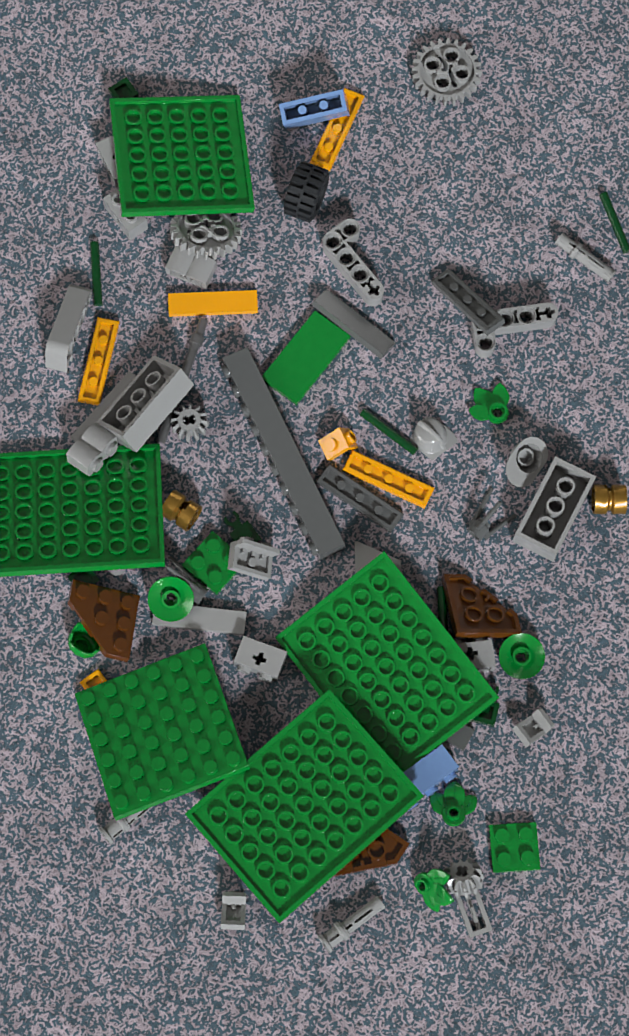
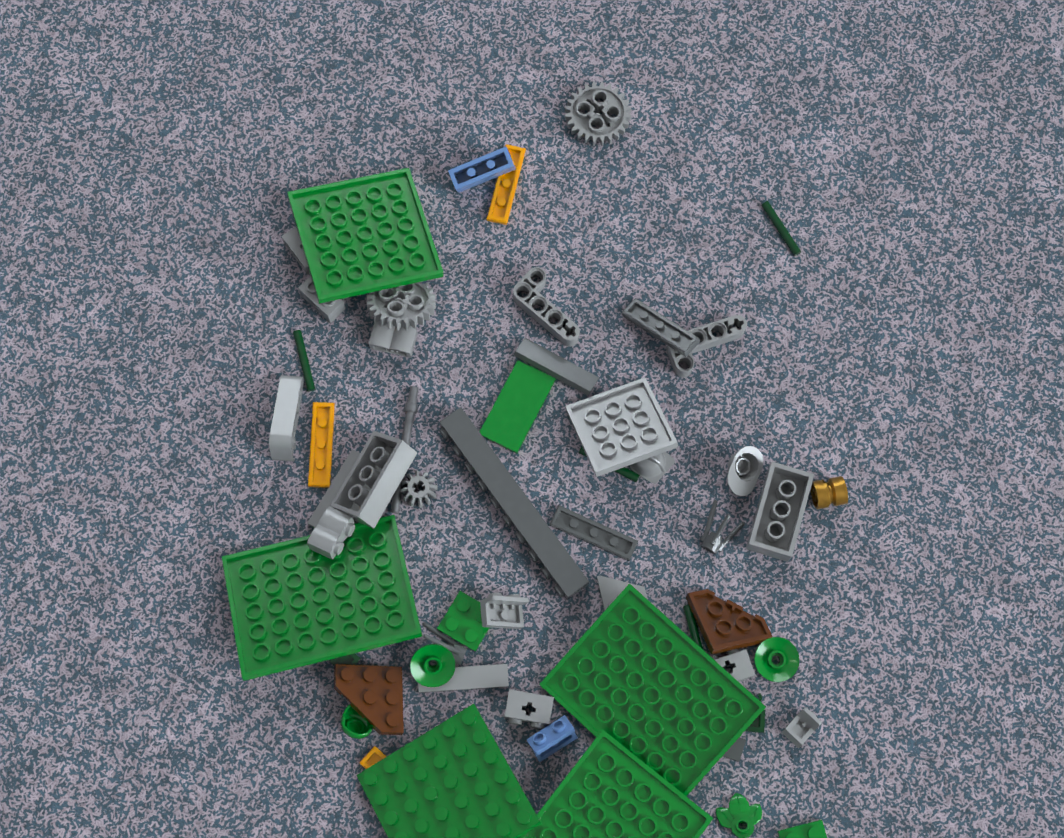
camera: 10 degrees left, 0 degrees up
(123, 89) = (298, 181): dark green plate -> none
(182, 511) = (426, 576): pearl gold wheel -> none
(212, 303) = (419, 369): light orange tile -> none
(241, 530) = (488, 585): dark green plate -> none
(277, 692) = (552, 738): none -> medium blue bracket
(306, 191) = (489, 249): black tyre -> none
(338, 442) = (563, 483): light orange bracket -> none
(388, 479) = (617, 510): light orange tile -> none
(407, 395) = (621, 427): none -> light grey plate
(431, 771) = (714, 788): medium blue brick -> none
(488, 402) = (697, 419): green plate -> none
(586, 258) = (760, 266): light grey pin -> none

